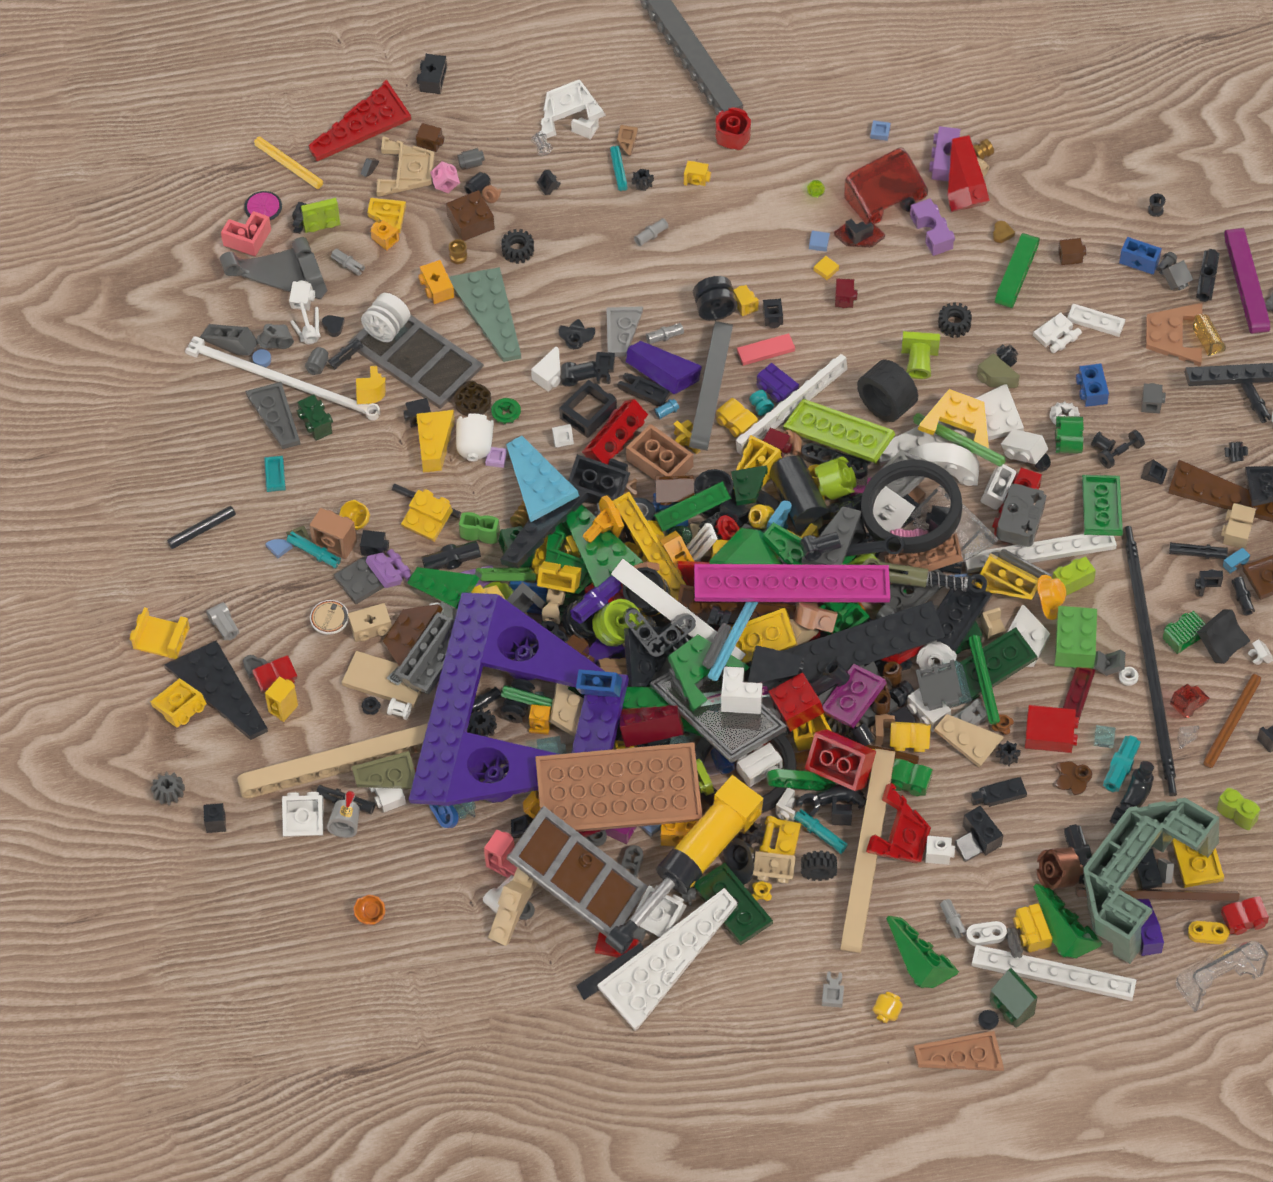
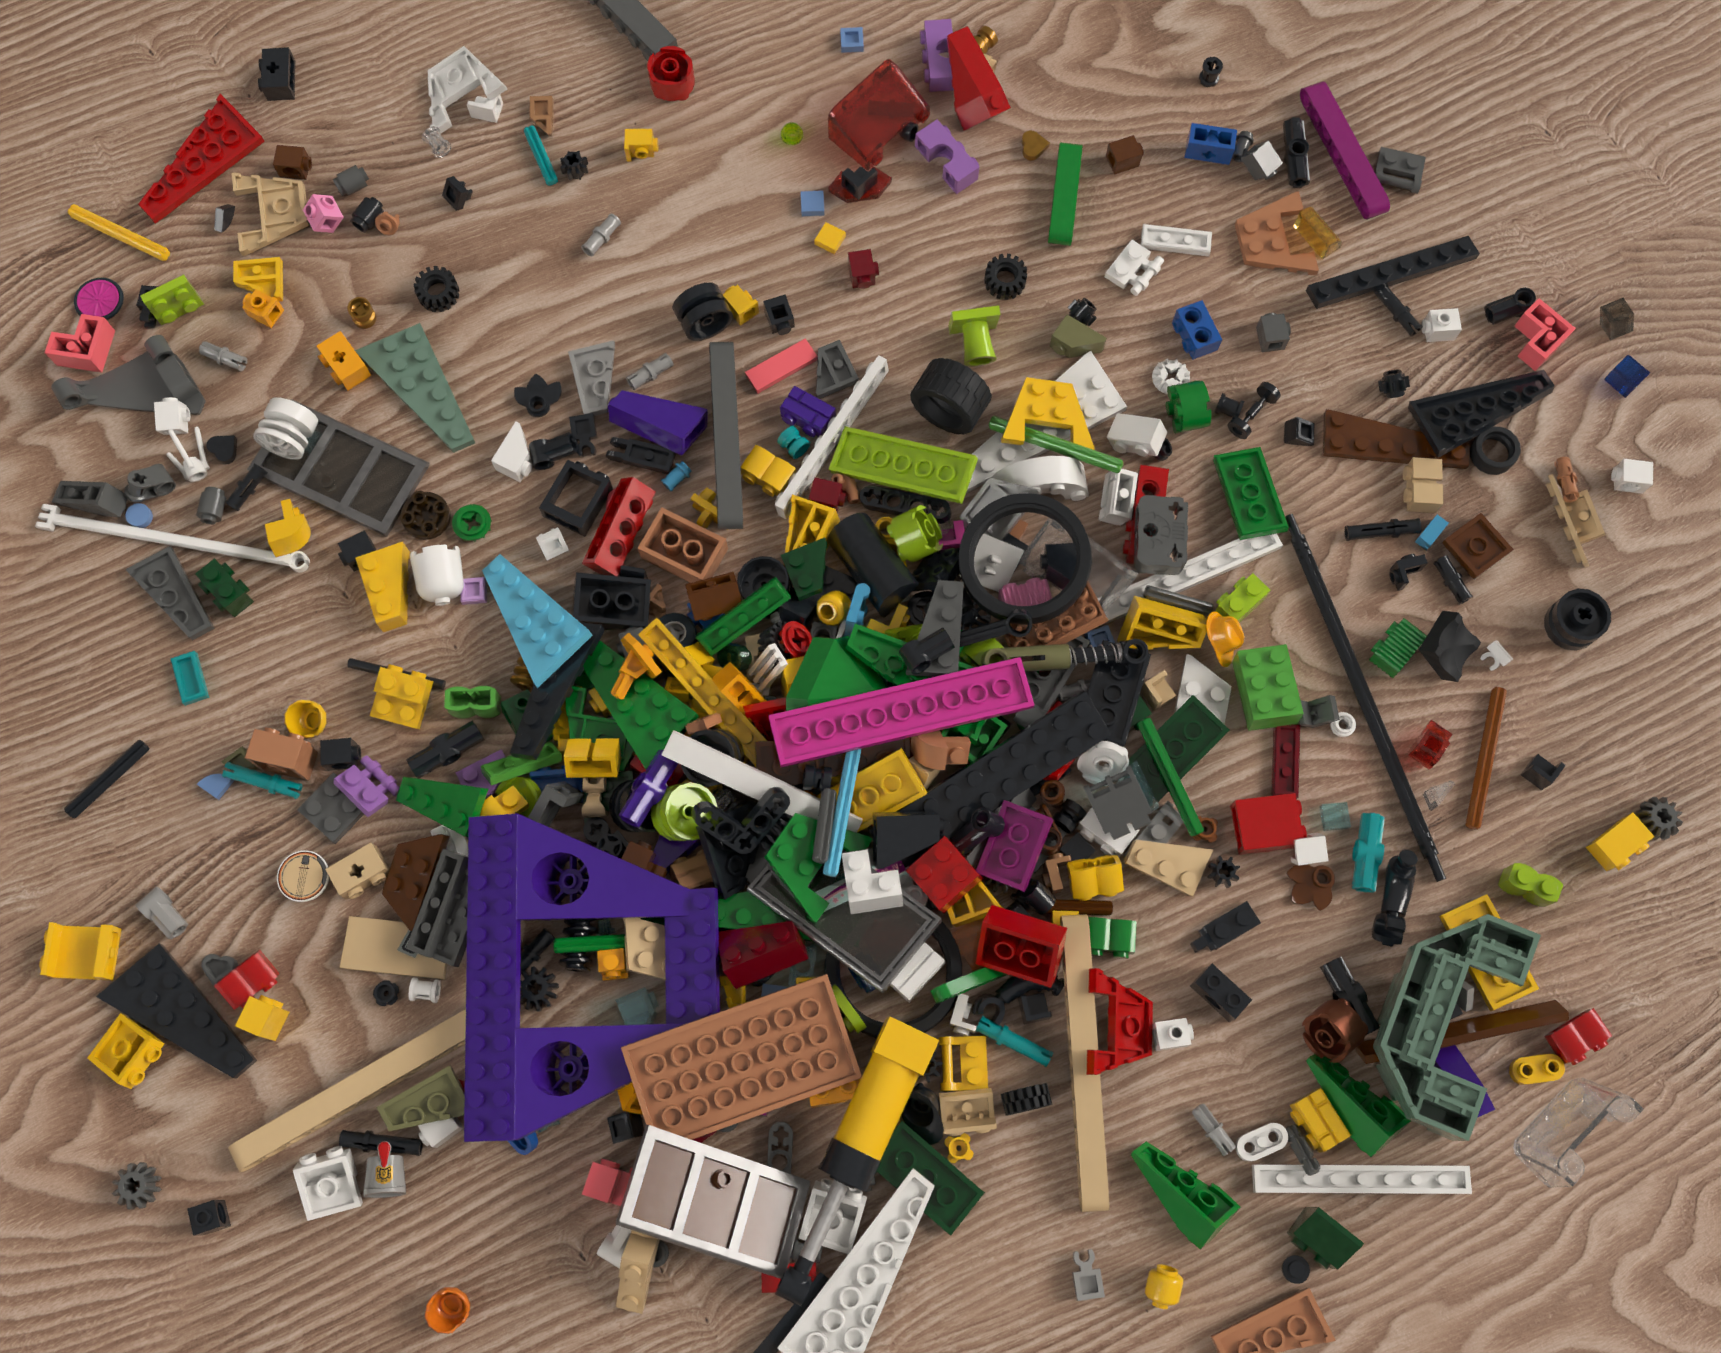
camera: 15 degrees left, 15 degrees up
(470, 216) = (367, 260): reddish brown brick -> none
(599, 683) = (681, 916): blue brick -> none
(805, 359) = (834, 370): none -> dark grey wing
(967, 846) = (1206, 1018): slope -> none
(1076, 750) = (1310, 849): none -> white panel

